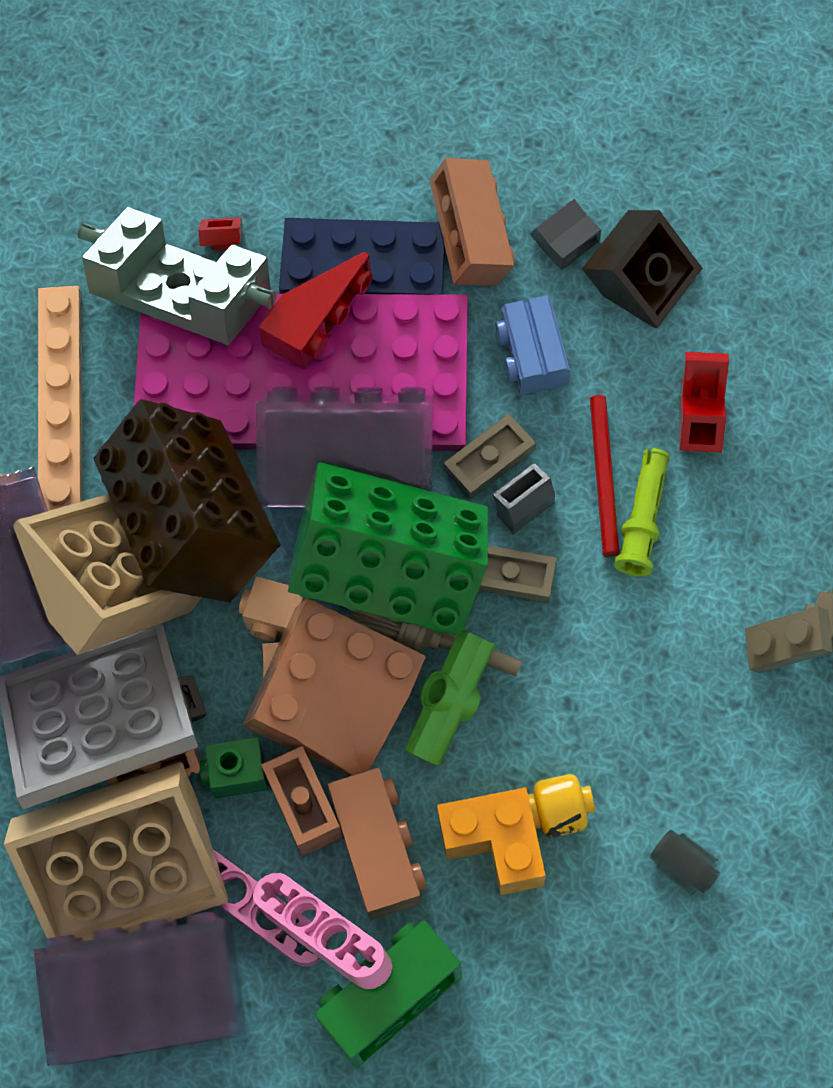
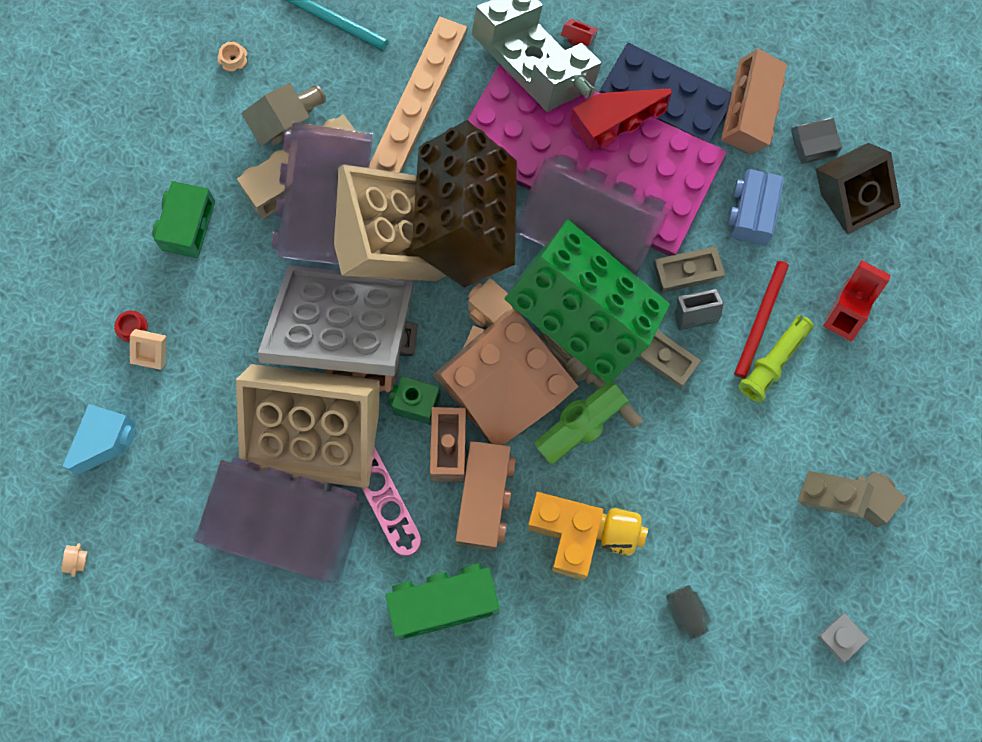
camera: 20 degrees right, 5 degrees up
(321, 929) = (415, 539): bright pink beam -> none

